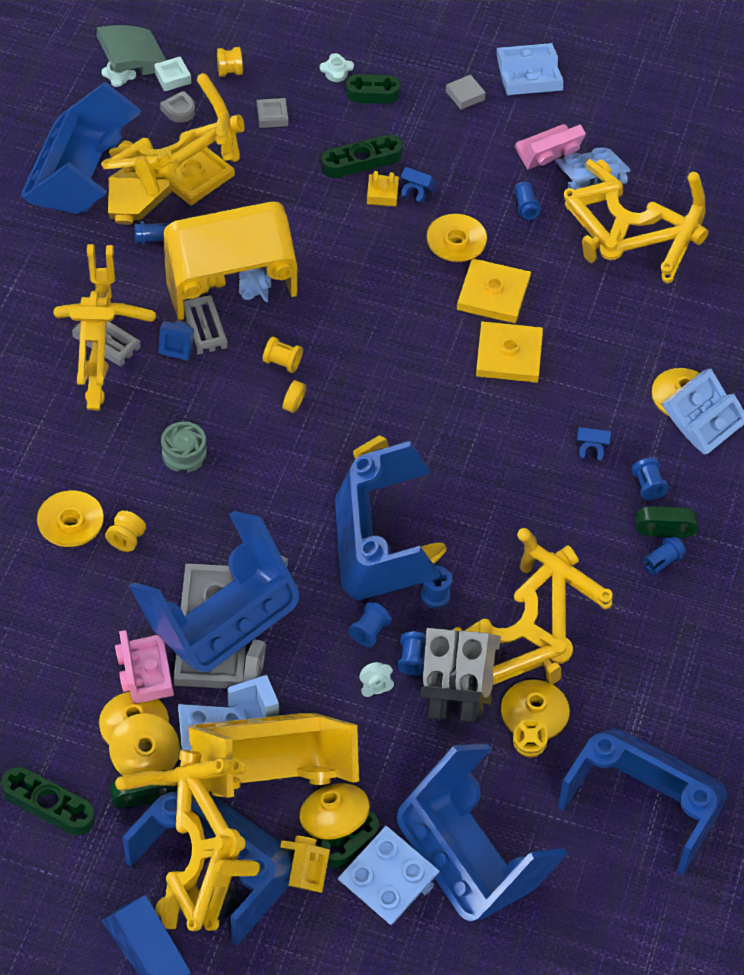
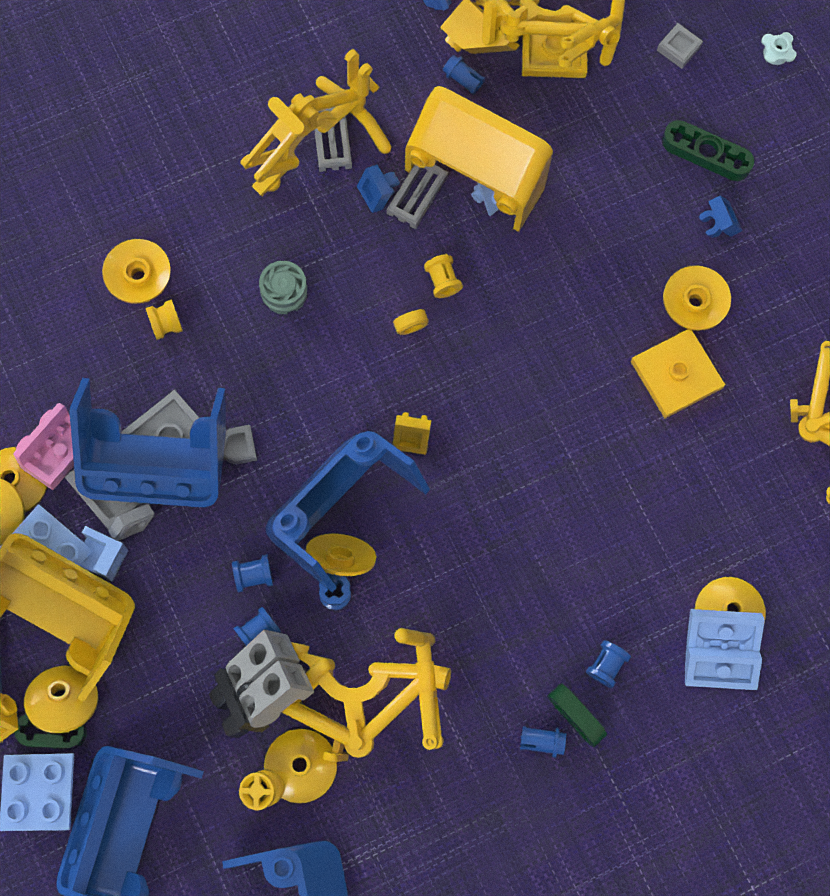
camera: 45 degrees right, 20 degrees up
(372, 88) = (787, 94): dark green beam -> none
(376, 679) = (206, 622): light aqua plate -> none
(382, 189) = (690, 197): yellow tile -> none
(509, 352) = (627, 440): yellow plate -> none
(528, 206) = (793, 321): blue pin -> none
(593, 438) = (602, 583): blue tile -> none

